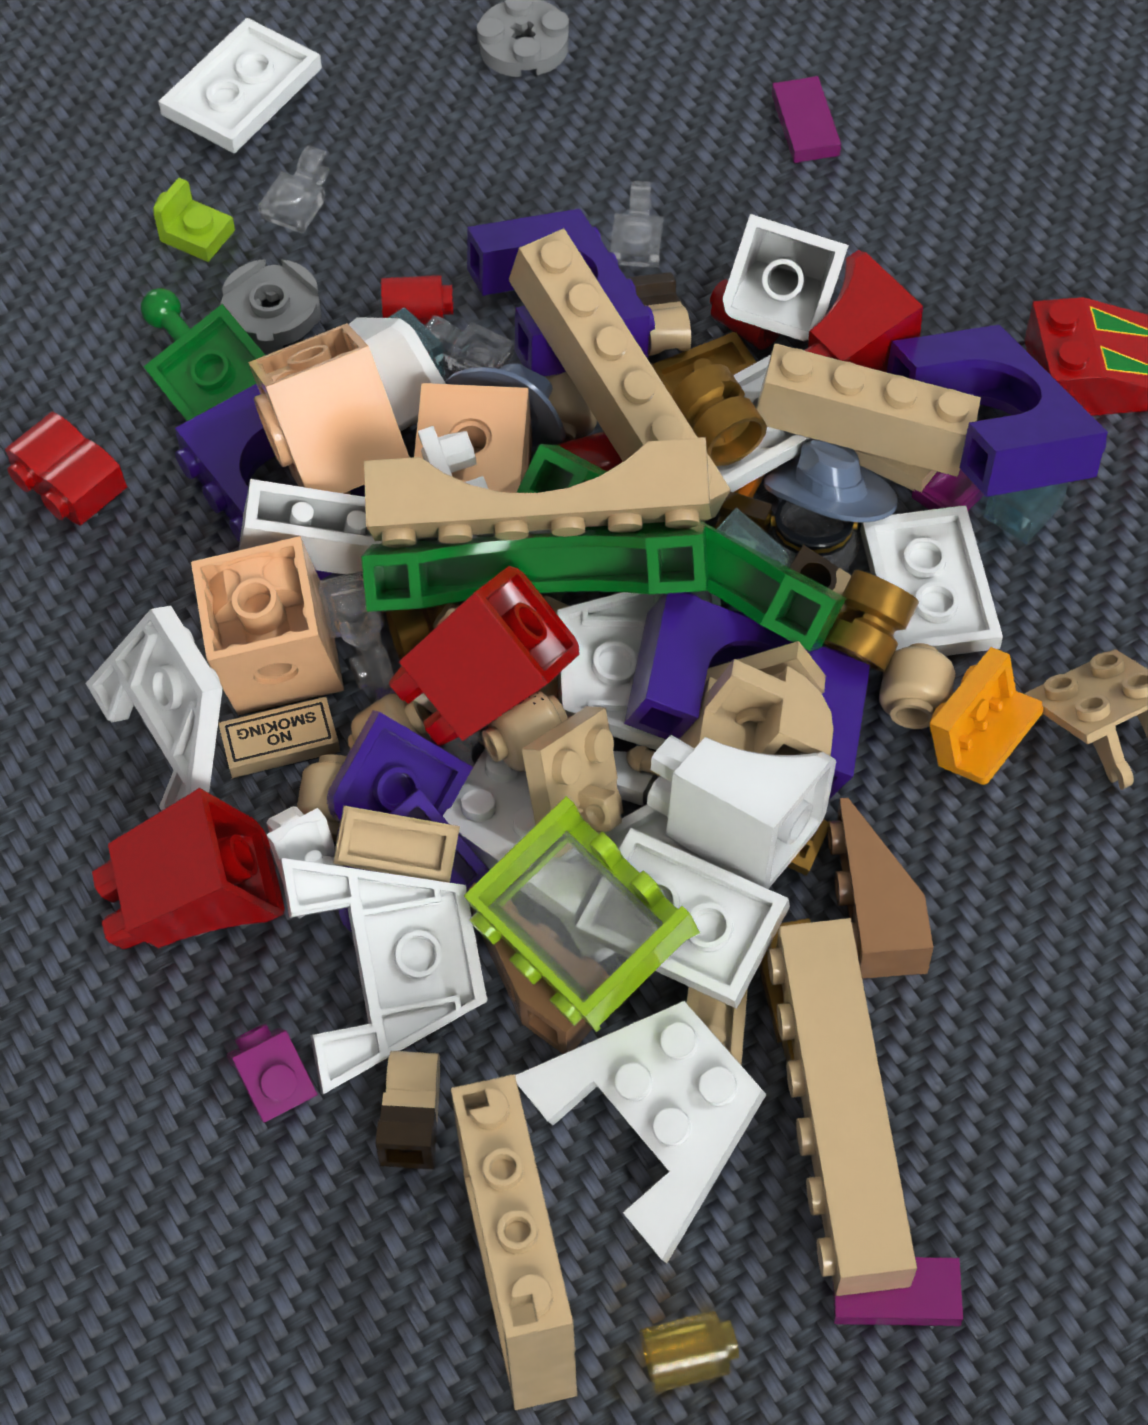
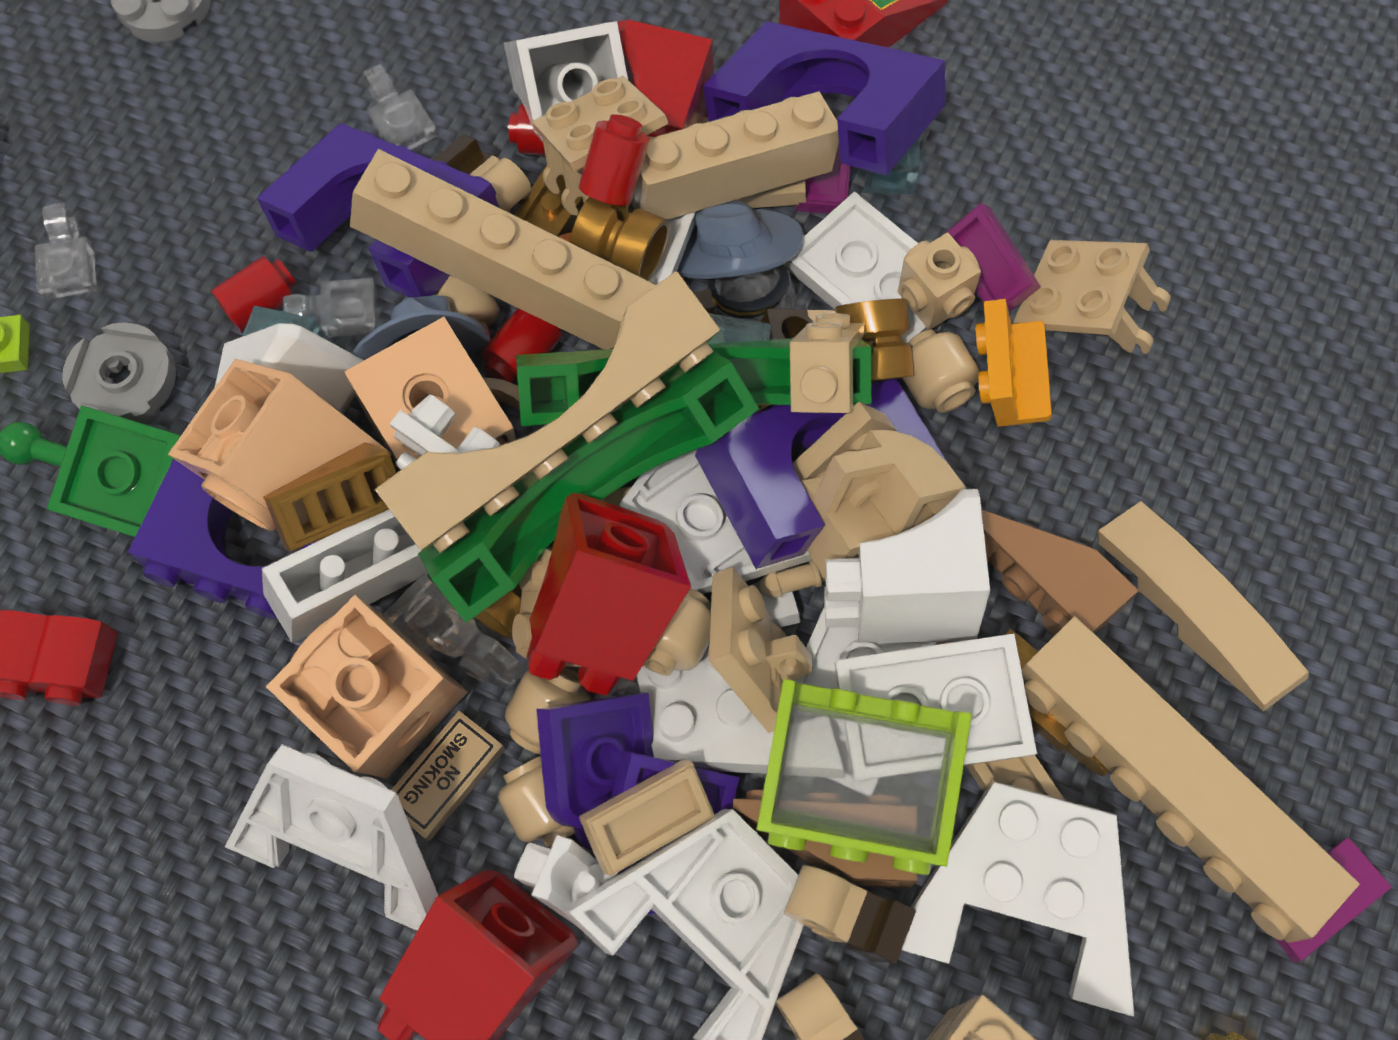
camera: 35 degrees left, 10 degrees up
(344, 445) = (364, 470): none -> pearl gold slope
(494, 1024) = (849, 915): none -> leg
(750, 346) = (614, 160): none -> red brick
(764, 316) = (570, 127): none -> tan plate
(784, 589) = (824, 364): none -> tan bracket
(966, 608) = (939, 280): none -> tan brick
(987, 1004) = (1205, 606): none -> tan slope
(1041, 630) = (1001, 265): none -> magenta tile

